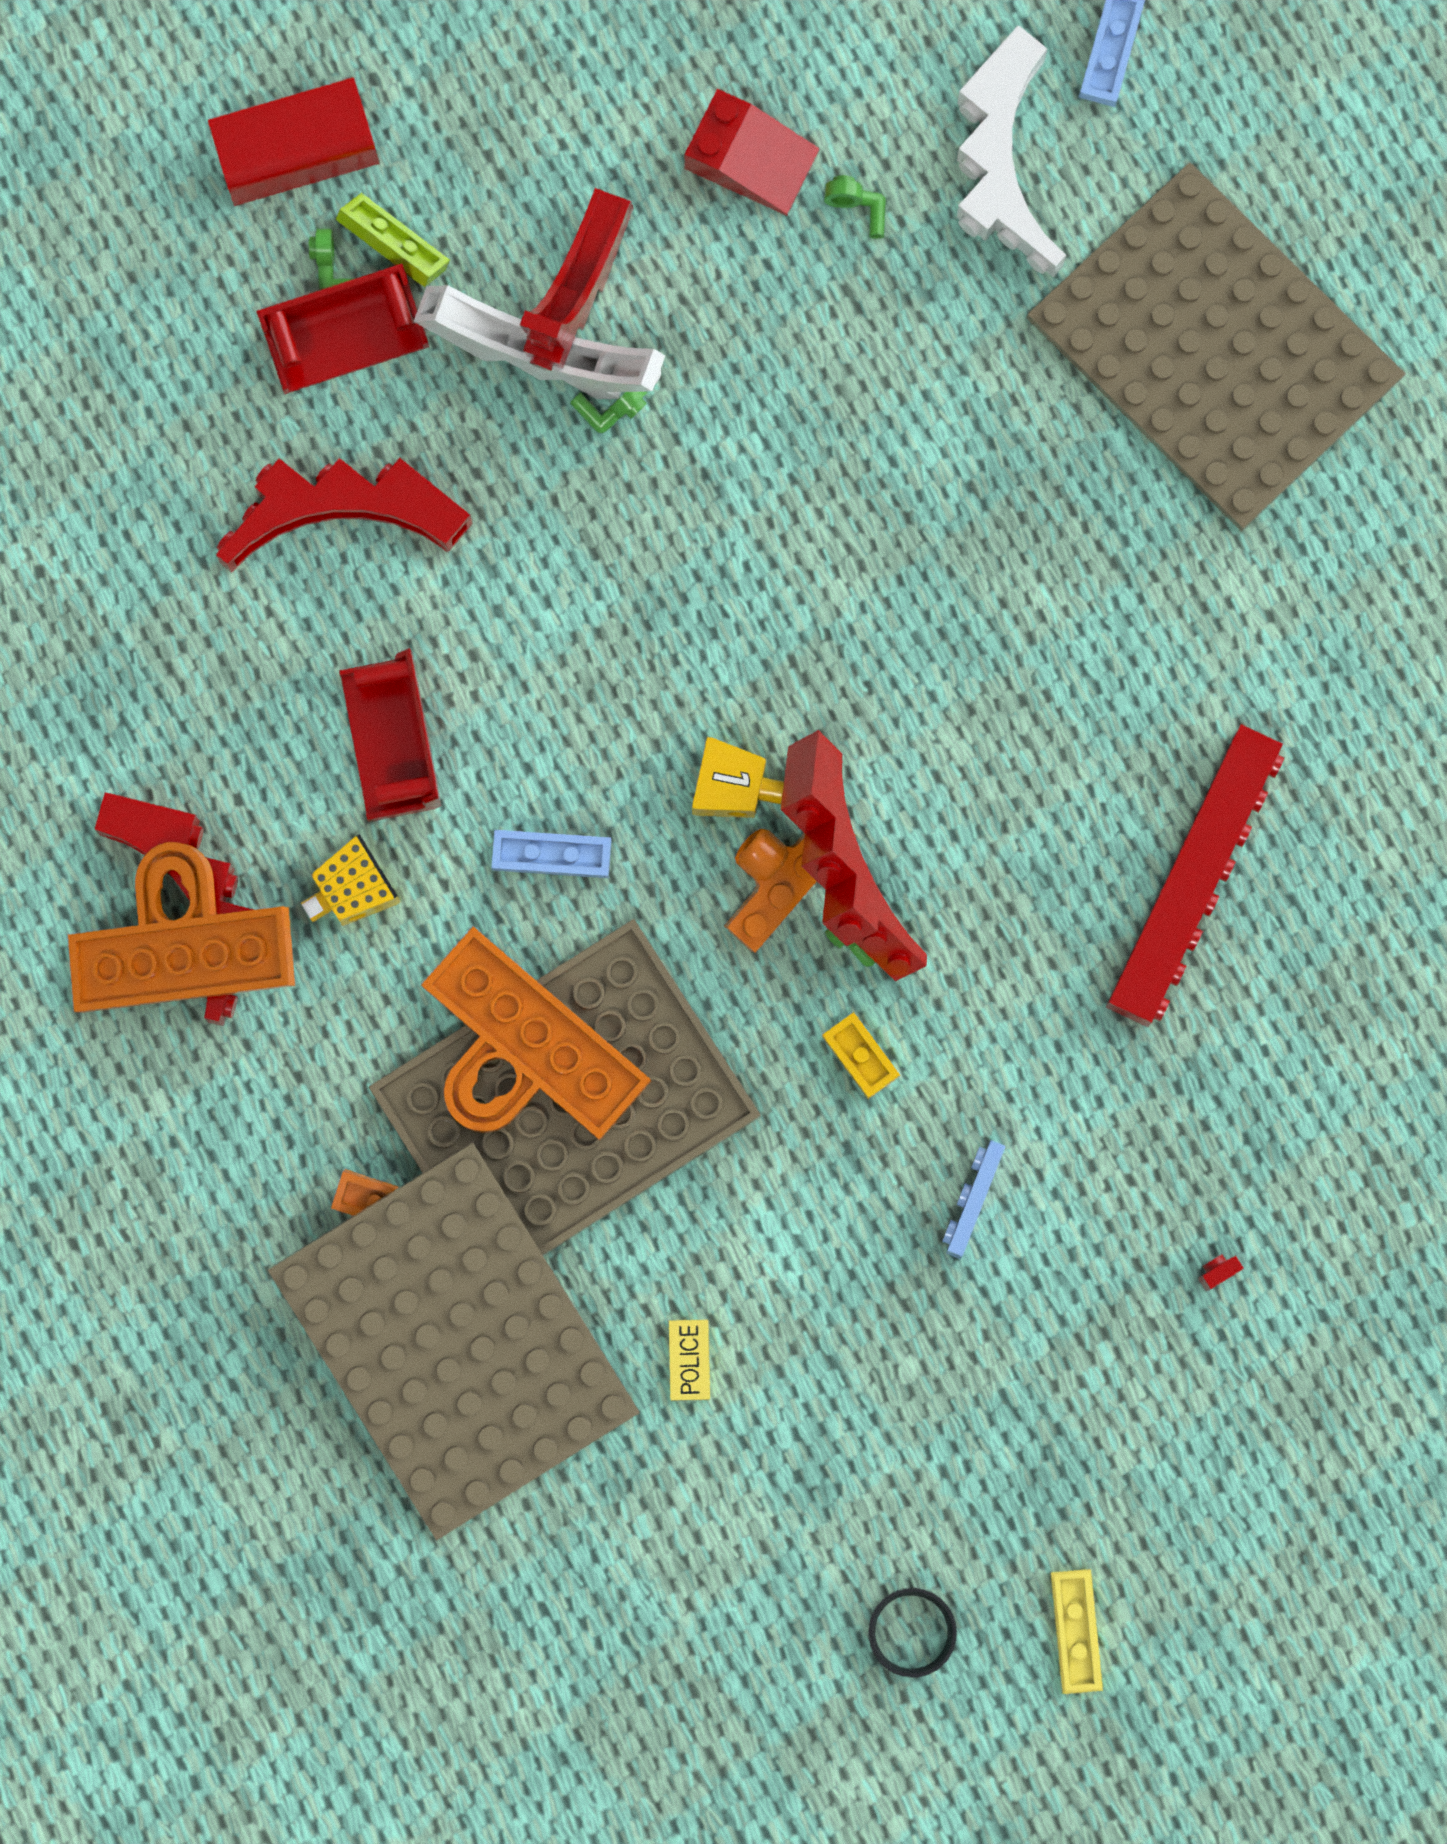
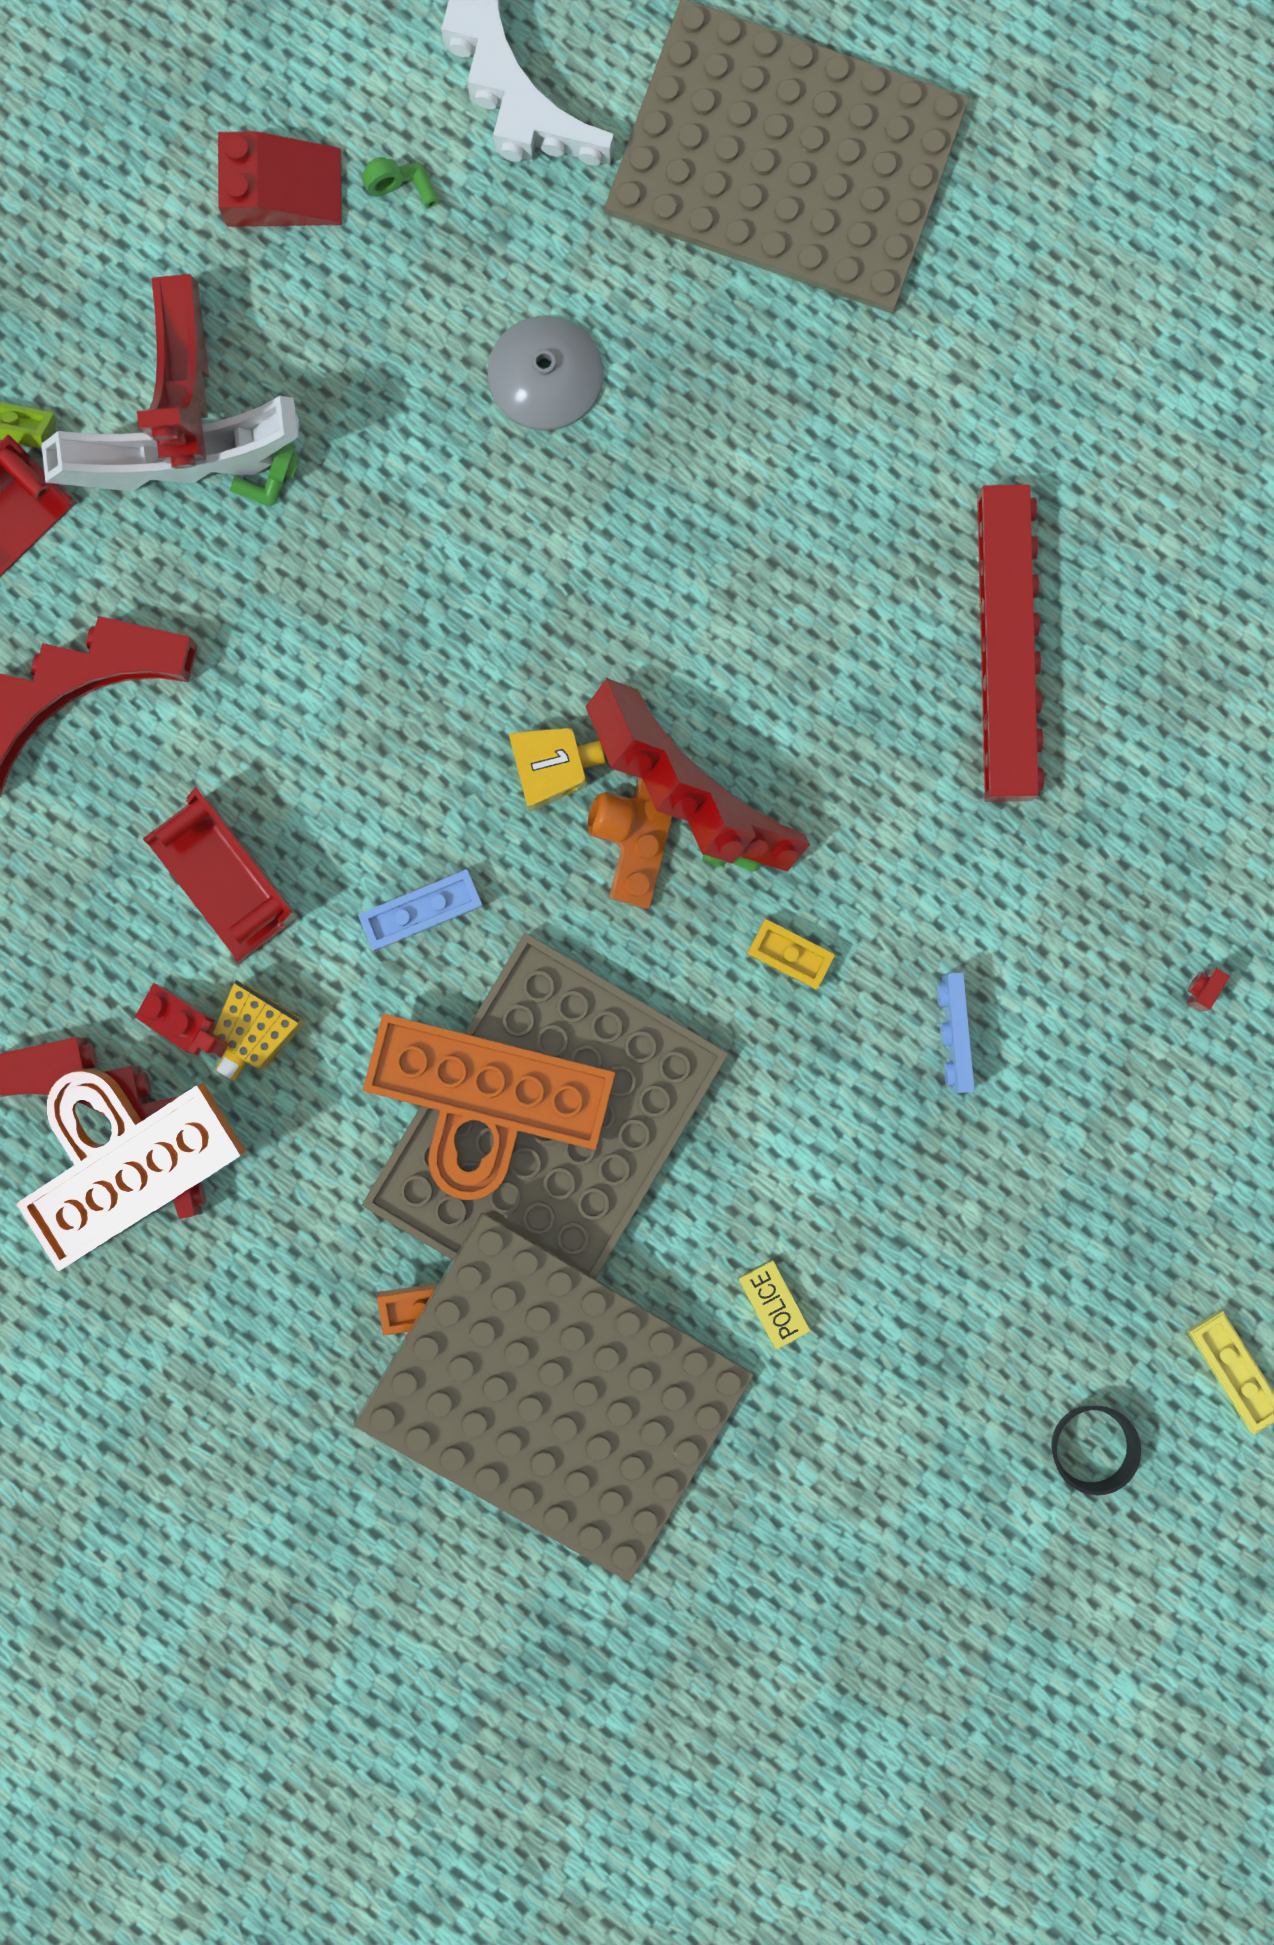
camera: 30 degrees left, 5 degrees up
(291, 846) = (180, 1022): none -> red hinge
(895, 457) = (547, 396): none -> light grey dish

